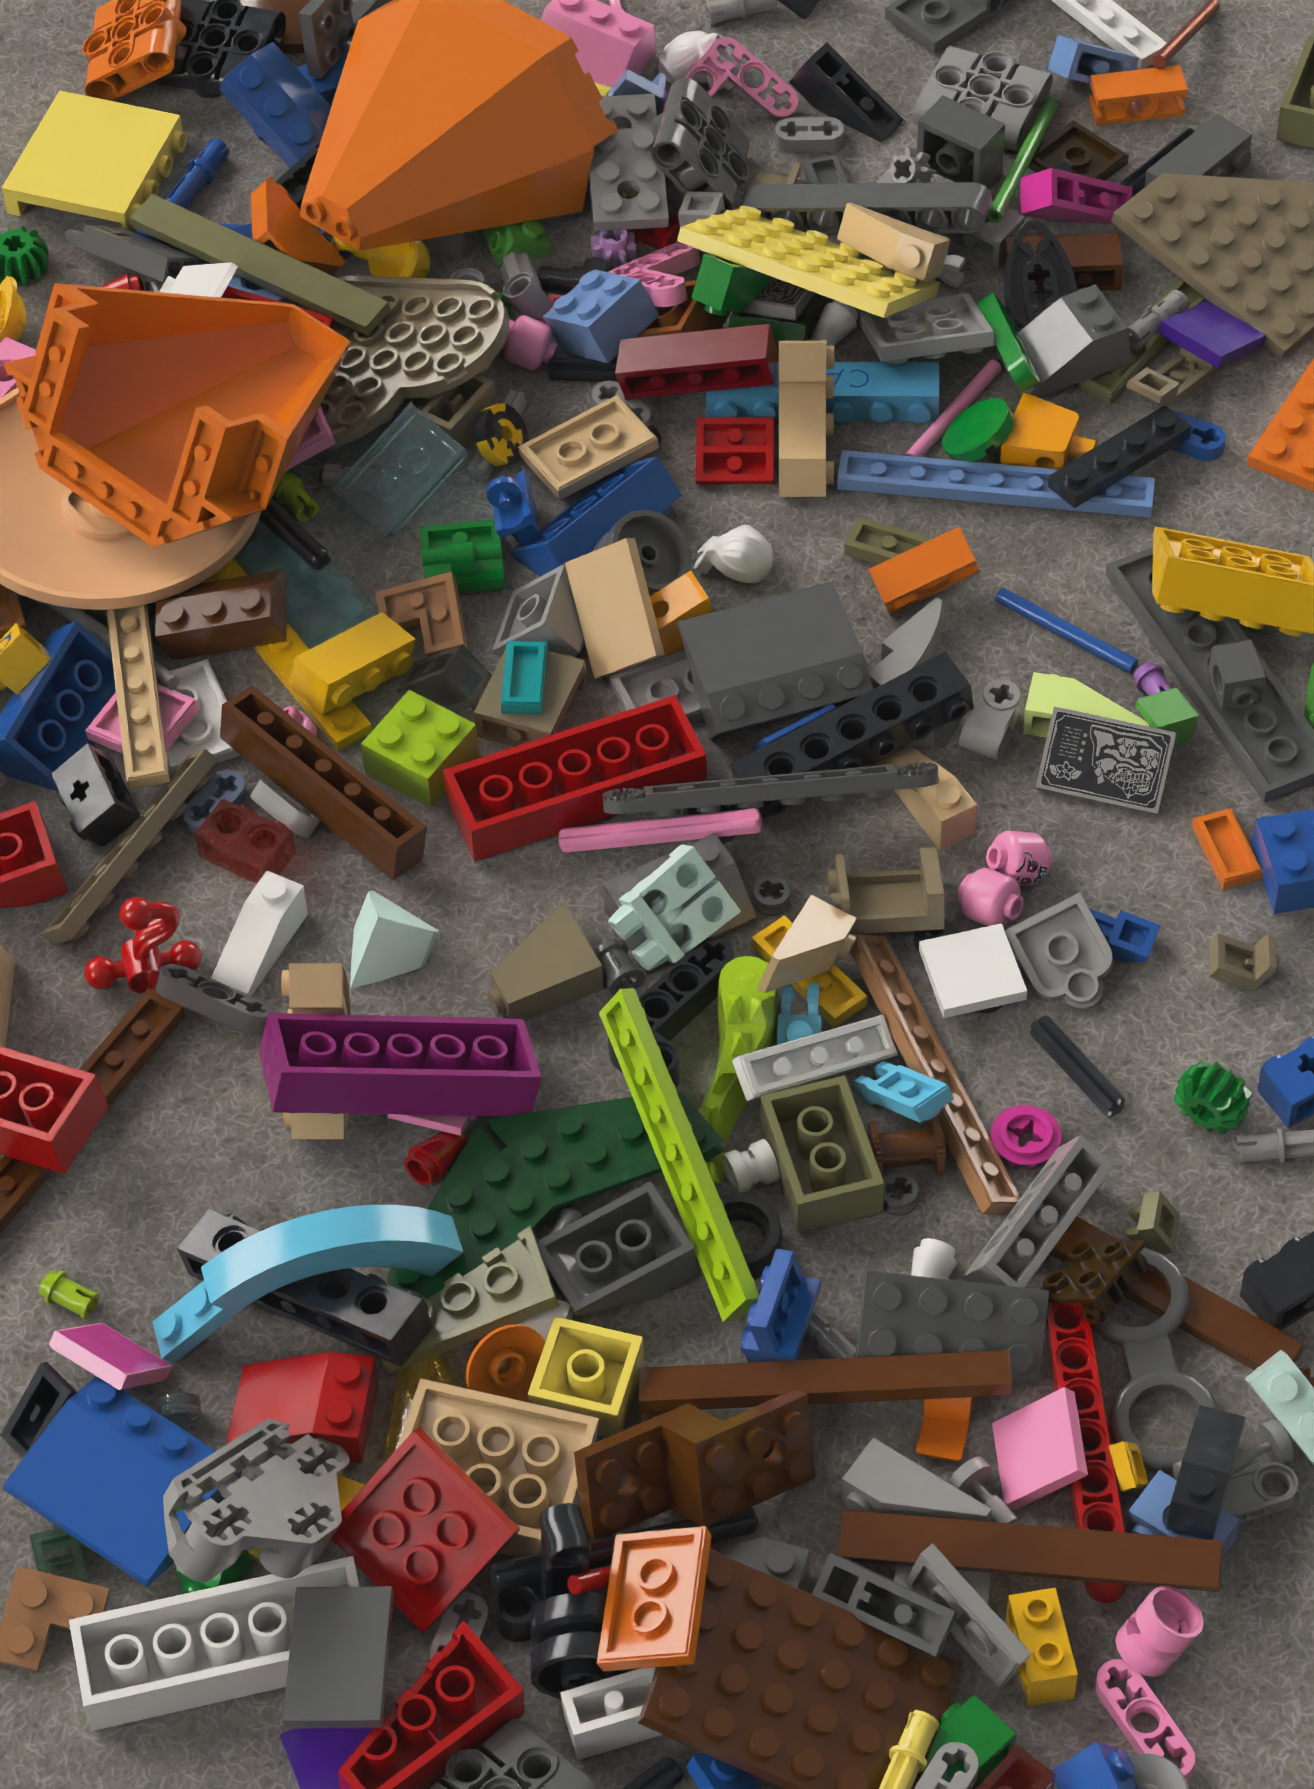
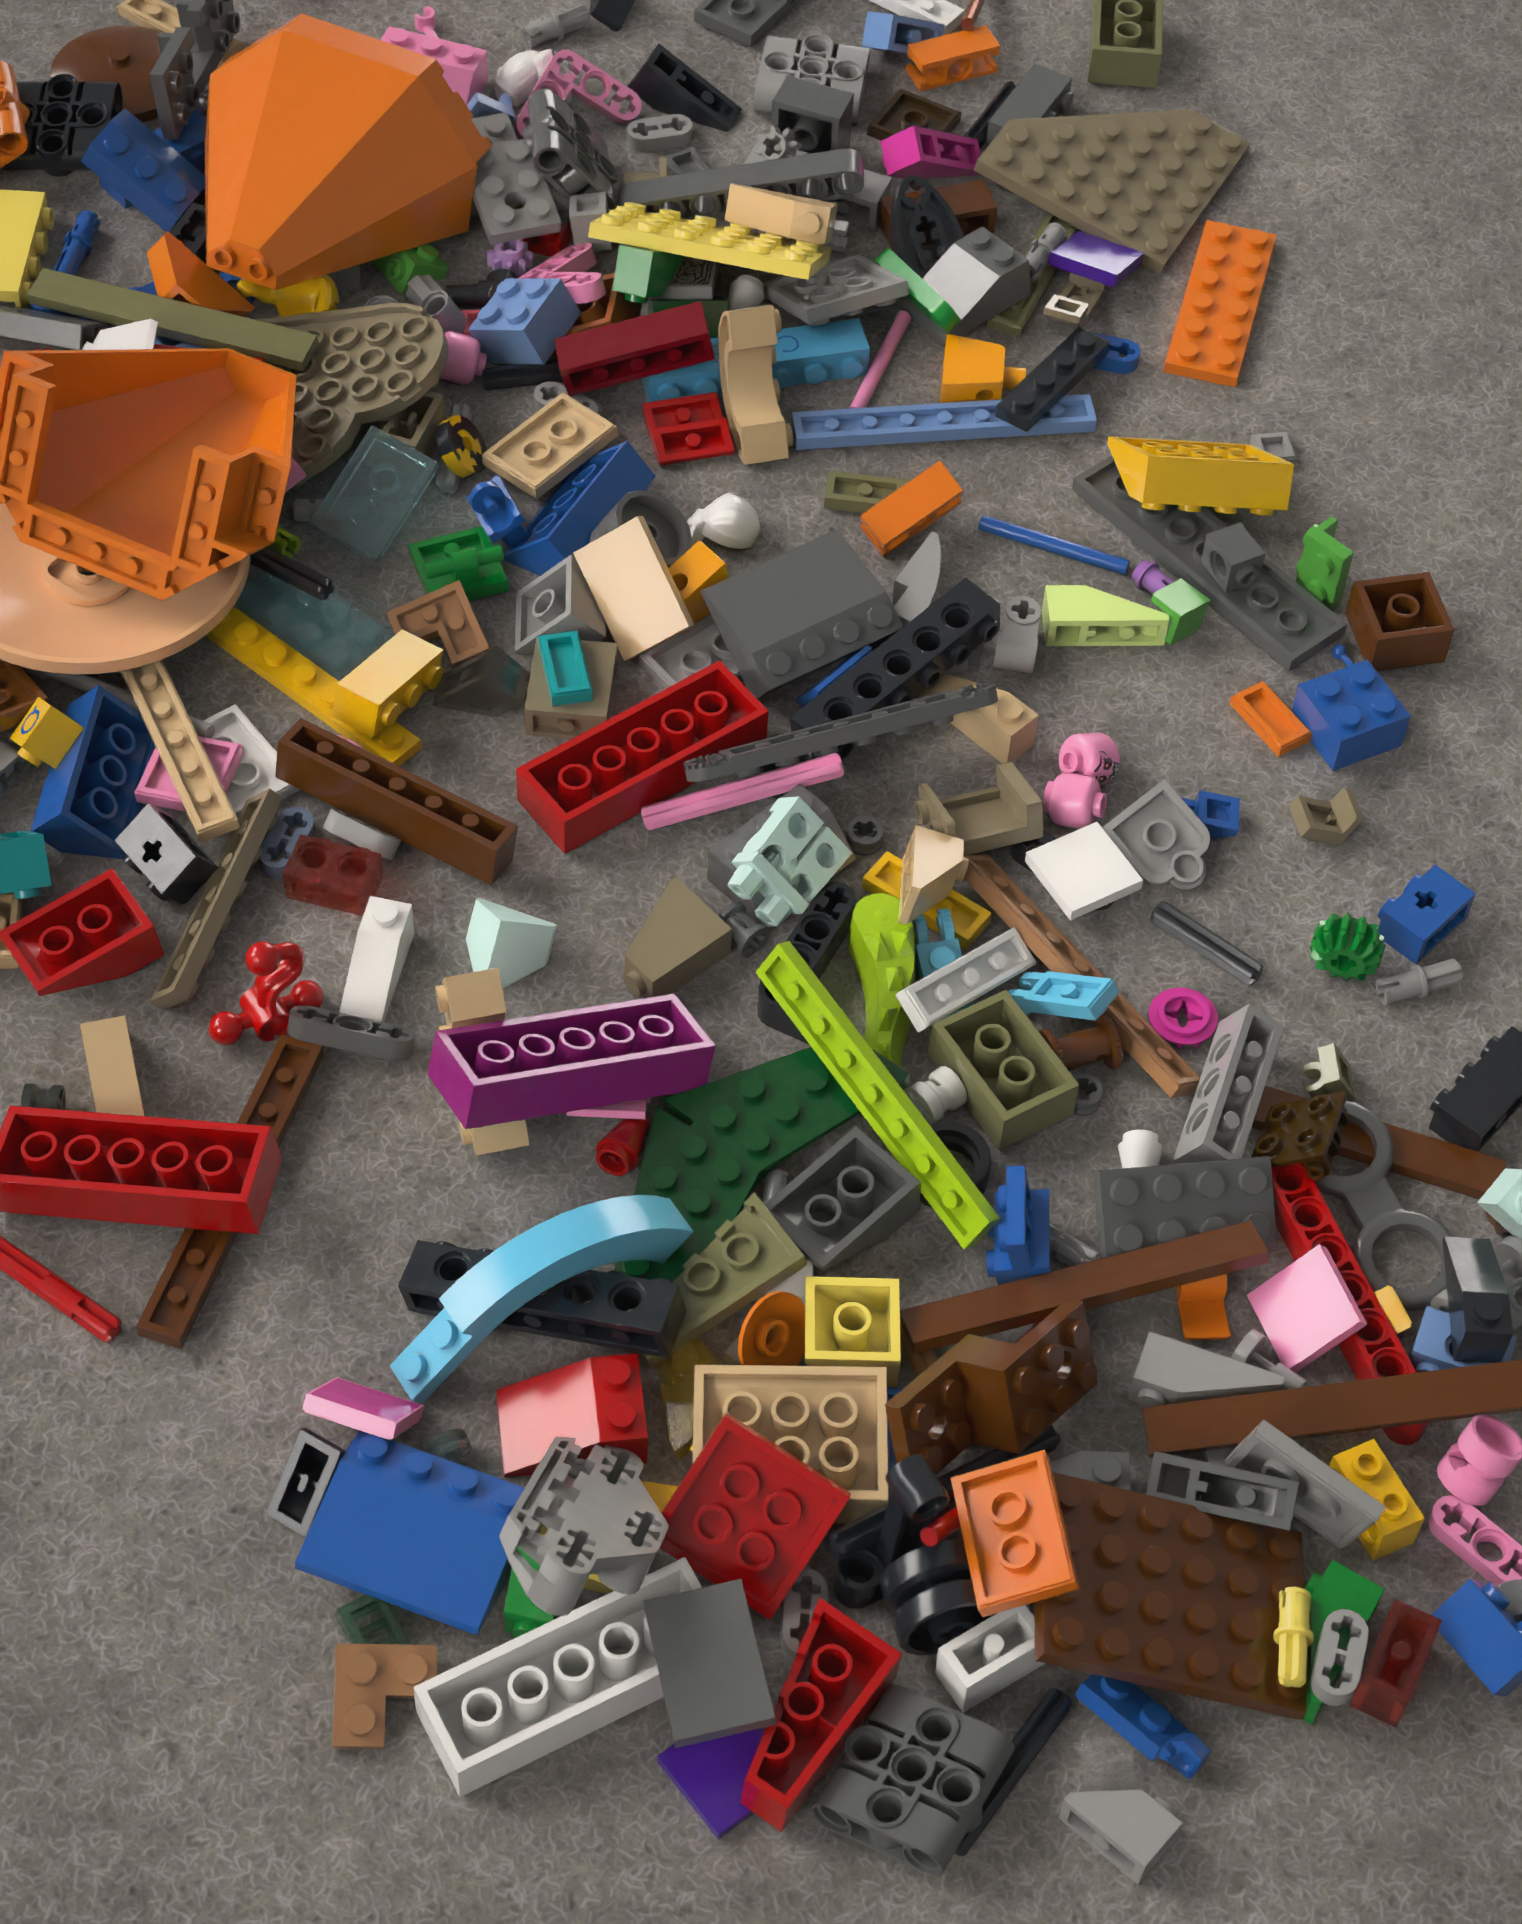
camera: 20 degrees left, 0 degrees up
(61, 1290) = (294, 1355): lime pin -> none
(224, 615) = (243, 659): reddish brown slope -> none
(416, 746) = (479, 753): lime brick -> none
(978, 429) = (914, 374): green tile -> none
(1022, 160) = (871, 127): bright green piece -> none
(1106, 760) = (1138, 655): tile -> none

